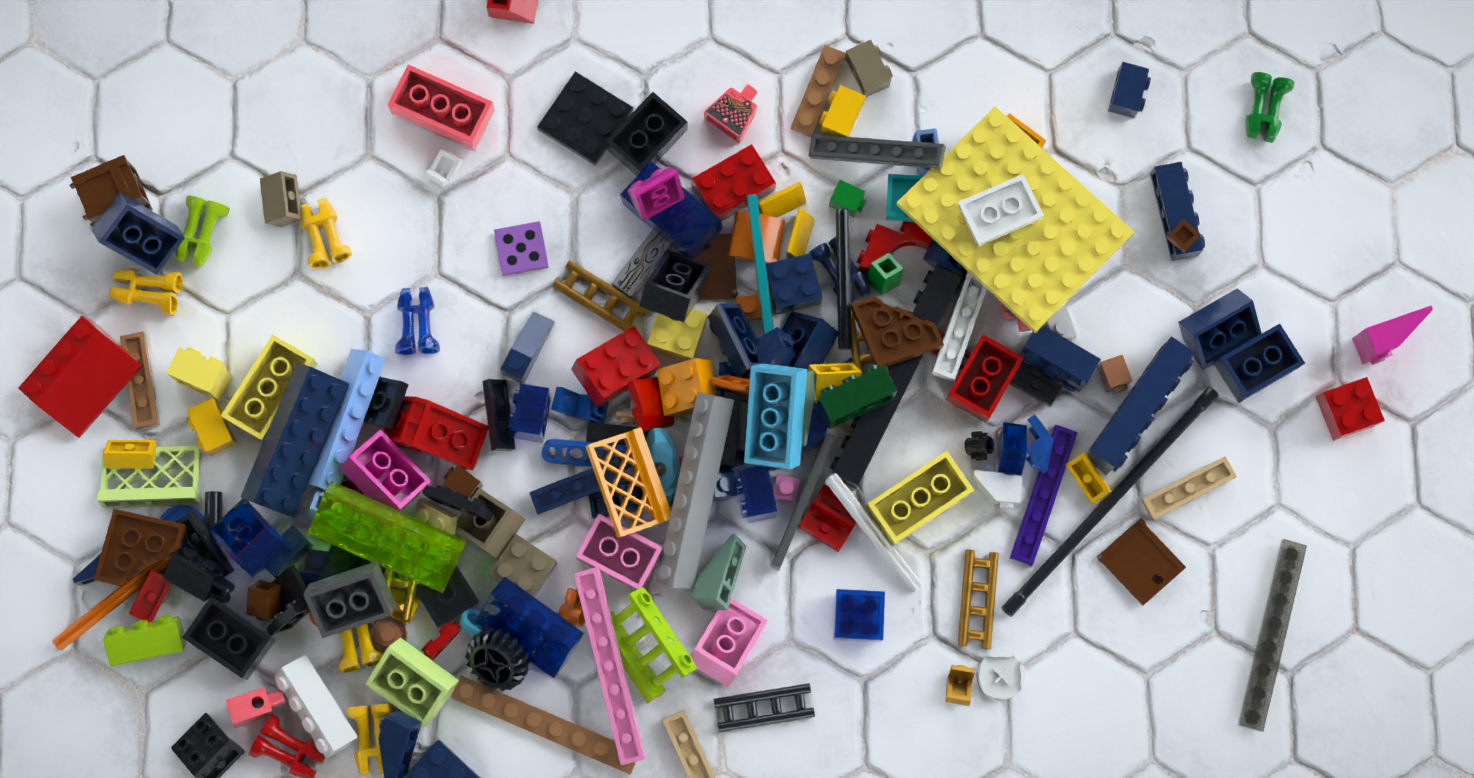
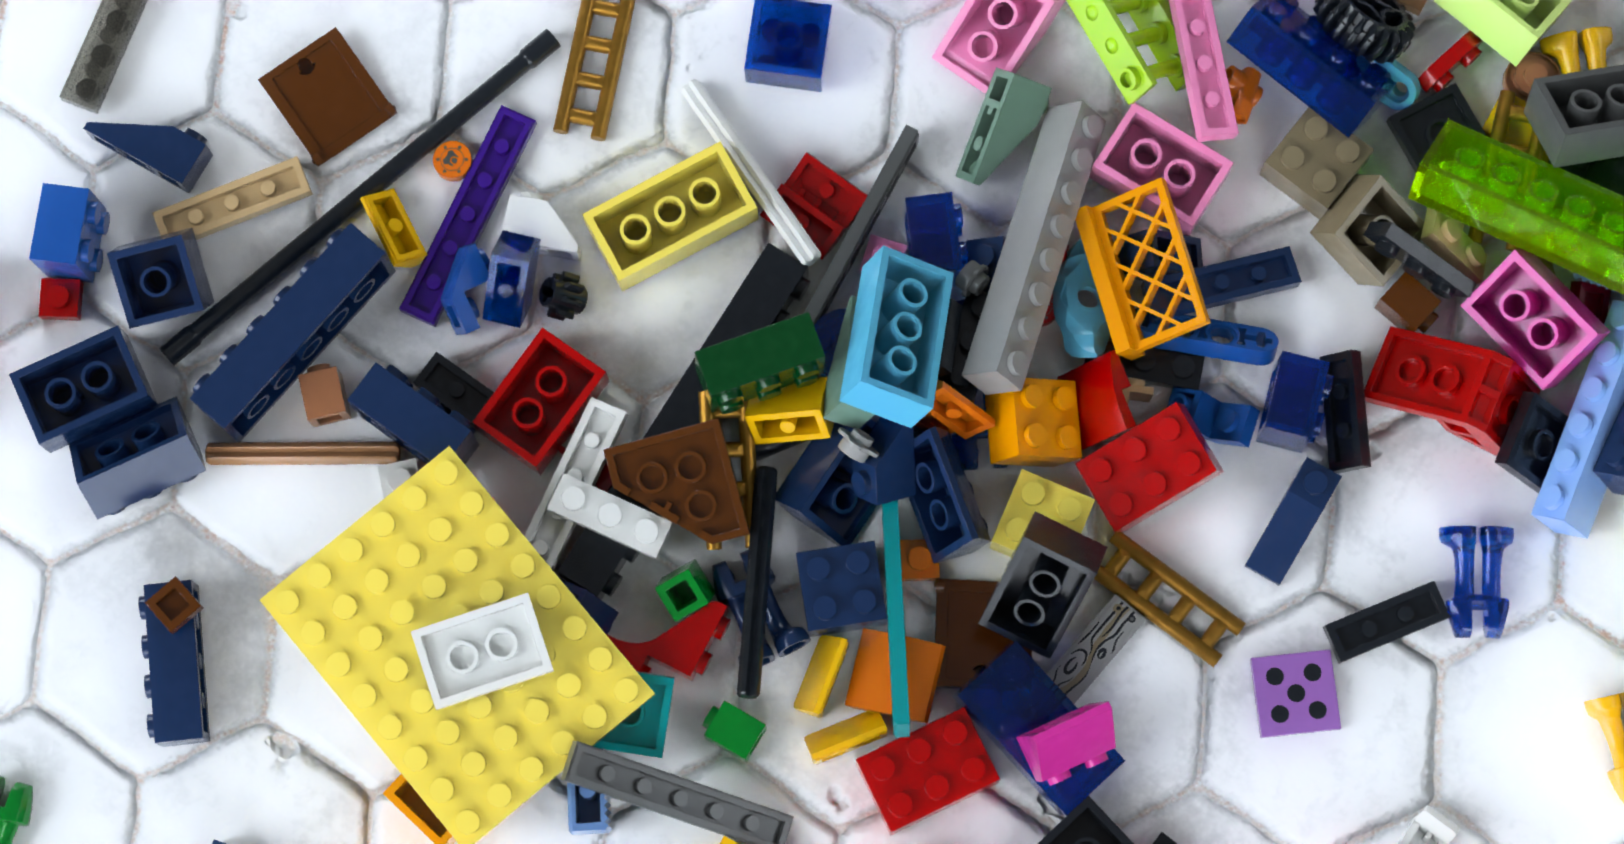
camera: 165 degrees left, 0 degrees up
(469, 292) = (1386, 622): none -> black plate
(731, 466) = (973, 279): none -> dark grey plate
(793, 357) = (857, 444): none -> light grey plate
(936, 309) = (609, 516): none -> white plate
(1058, 528) = (452, 160): none -> orange tile
(1126, 340) = (302, 453): none -> medium nougat axle
(1224, 432) = (160, 278): none -> dark blue brick
(1234, 515) = (160, 149): none -> dark blue slope
(1282, 422) = (61, 299): none -> red plate
(1285, 455) = (69, 233): none -> blue brick

